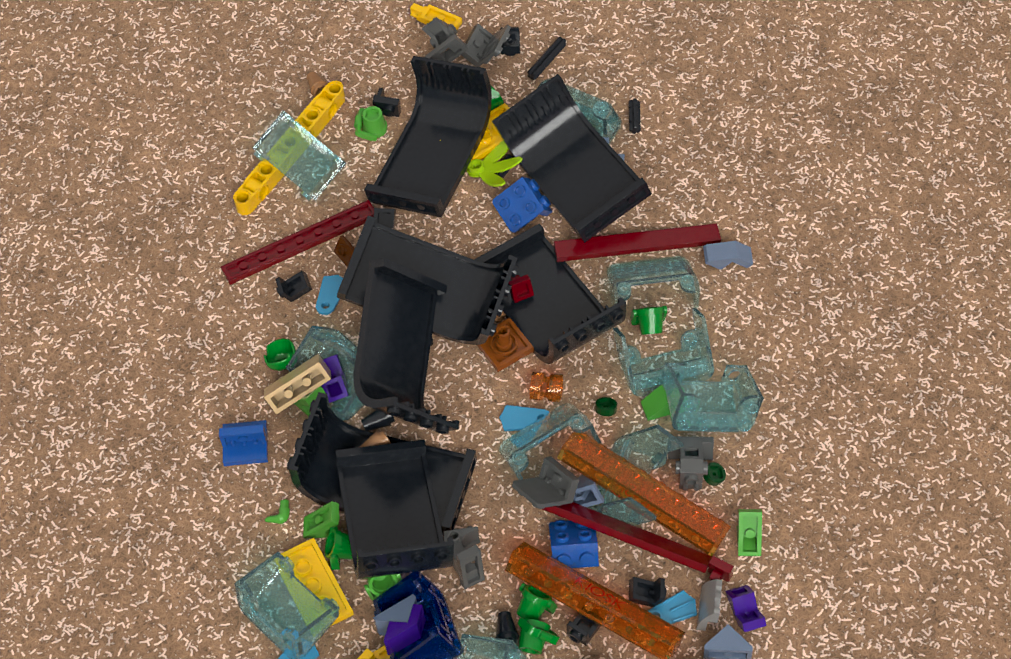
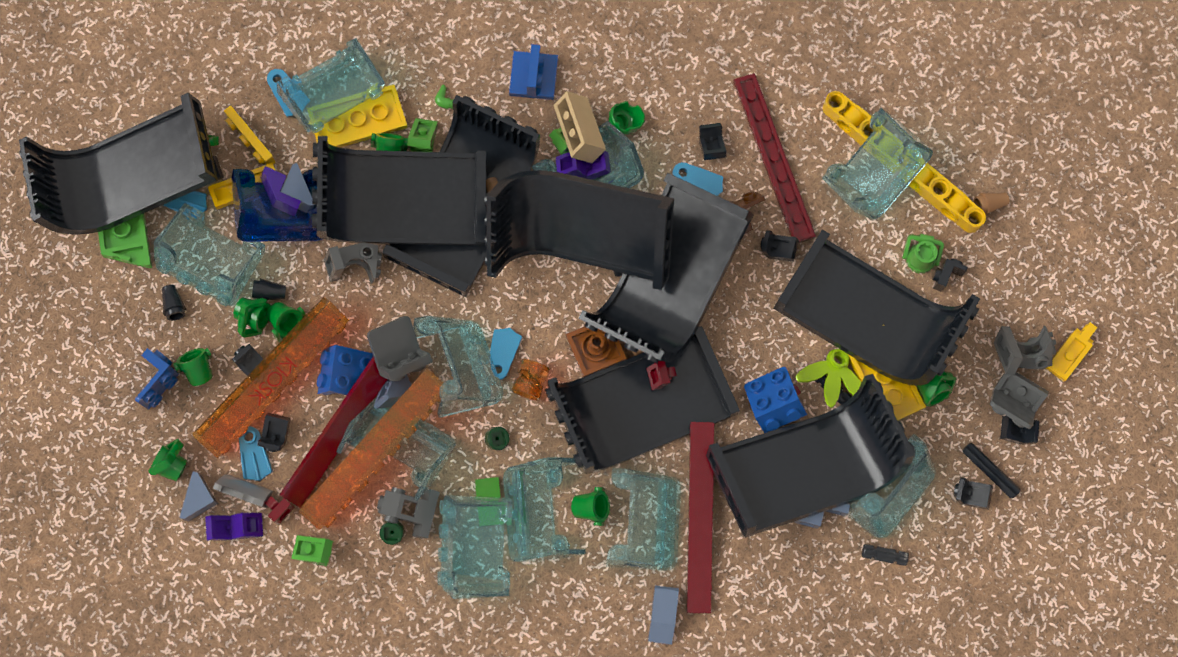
camera: 90 degrees right, 20 degrees up
(569, 64) = (973, 493): none -> black bracket

